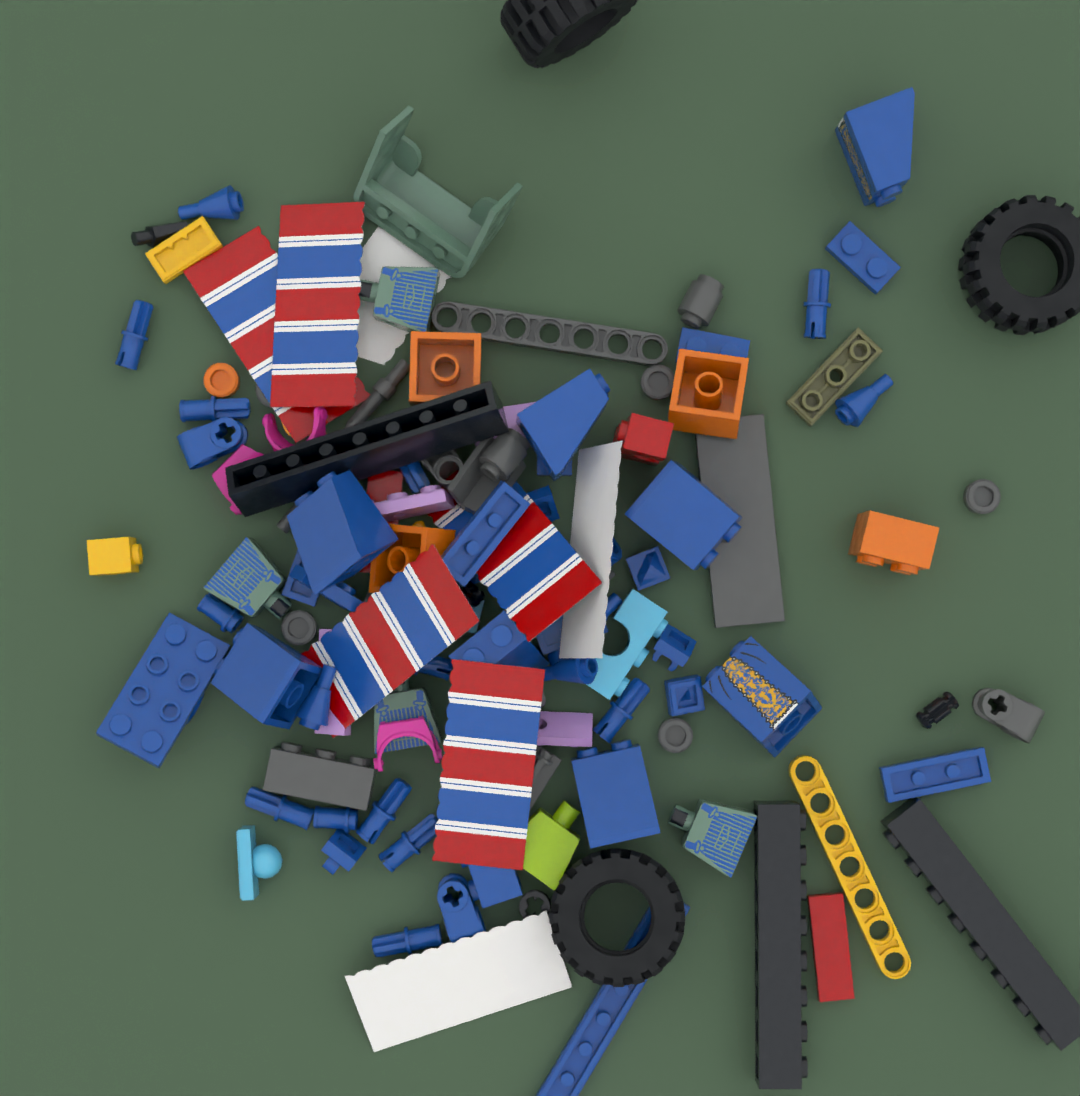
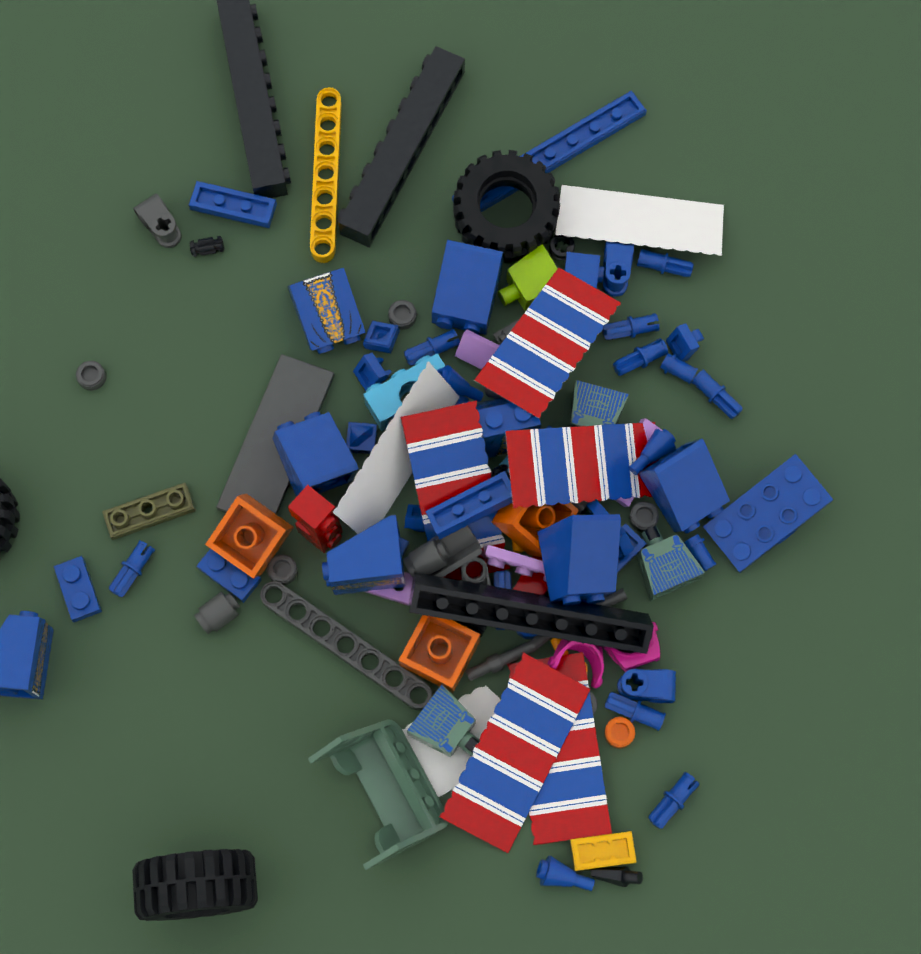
camera: 155 degrees left, 15 degrees down
(114, 556) = (764, 633): yellow brick -> none
(254, 862) = (748, 362): medium azure tile -> none
(320, 776) = (676, 400): dark grey brick -> none
(410, 727) = (597, 397): dark pink helmet -> none
(714, 832) = (407, 235): torso -> none
(830, 947) = (367, 129): red tile -> none
(856, 405) = (145, 480): blue cone -> none
(893, 541) = (173, 366): orange brick -> none

